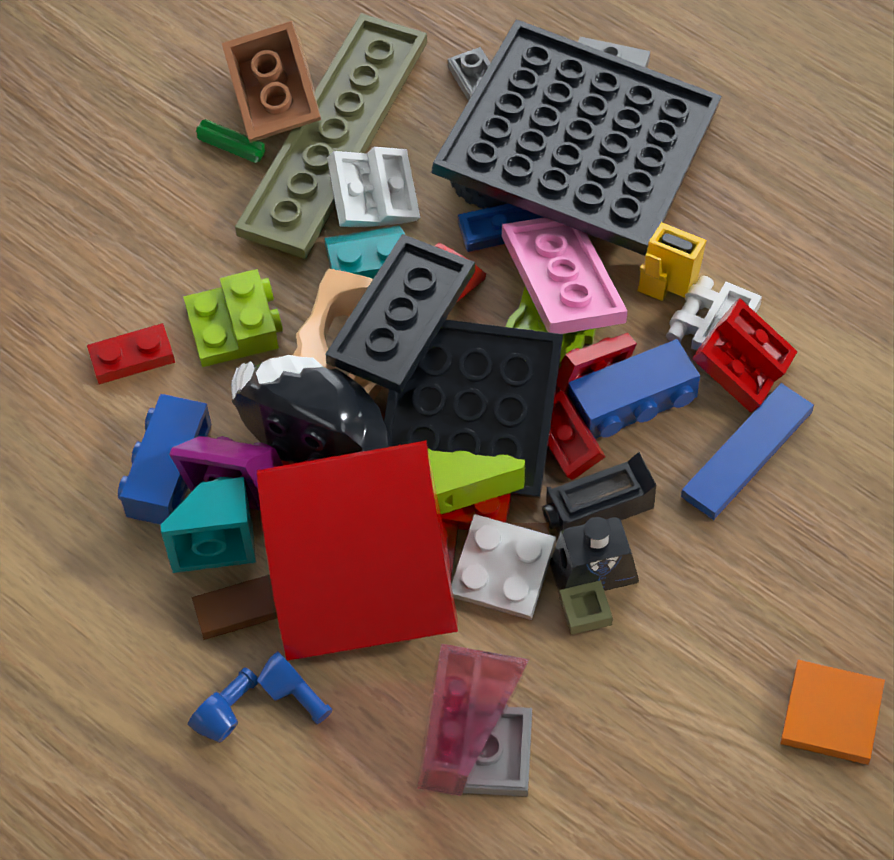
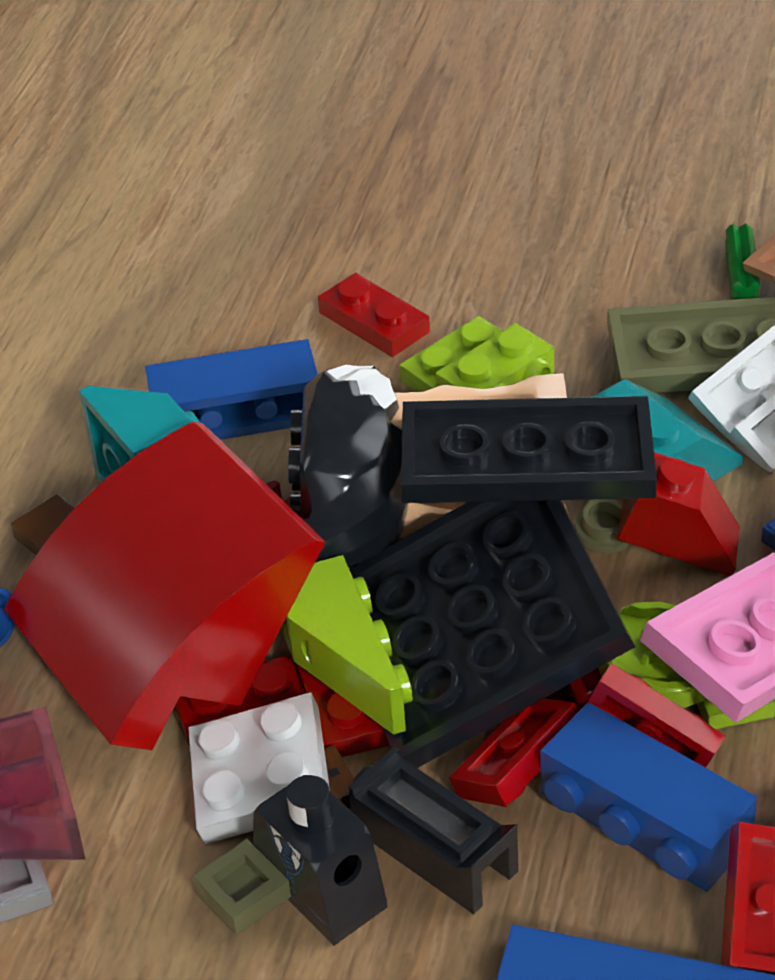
camera: 65 degrees right, 15 degrees down
(211, 458) = (243, 420): magenta slope -> none

